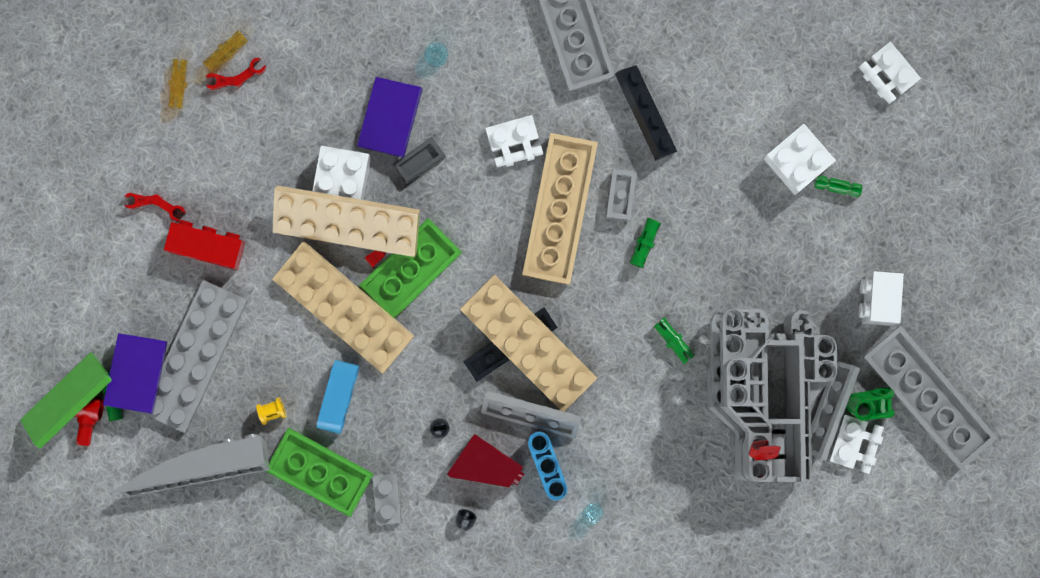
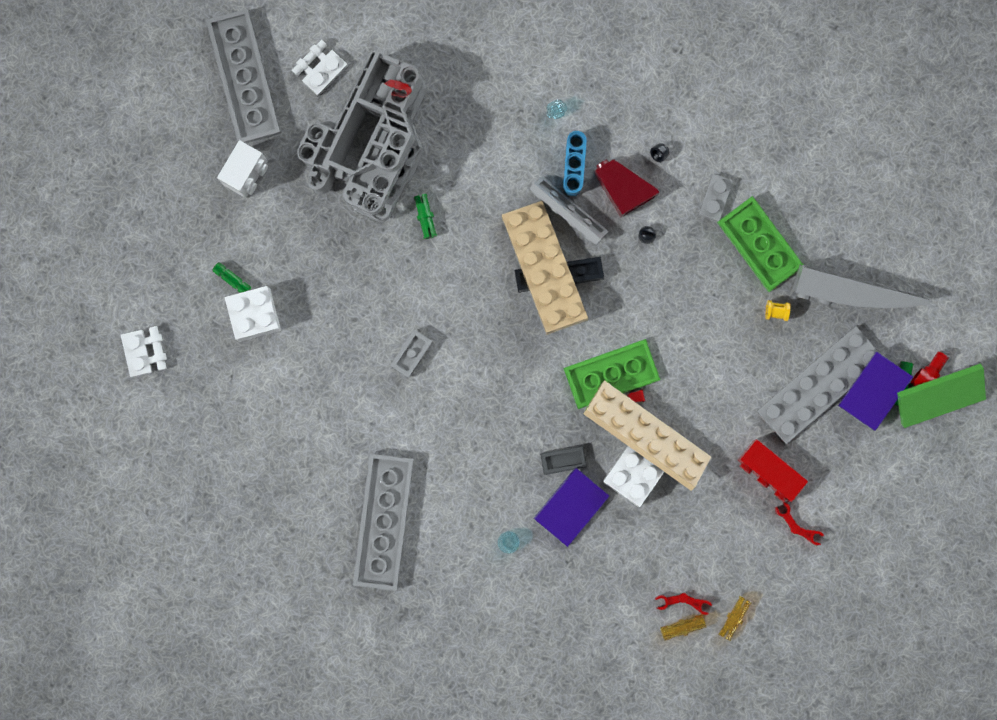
camera: 155 degrees left, 0 degrees up
(337, 396) = (718, 297): dark azure beam -> none
(343, 307) = (681, 367): tan plate -> none
(513, 134) = (477, 446): white plate -> none
(560, 209) = (466, 365): tan plate -> none
(645, 112) = (359, 411): black plate -> none
(645, 243) = (411, 305): green pin -> none
(832, 409) = (326, 102): light grey plate -> none
(876, 404) = (292, 91): green piece -> none

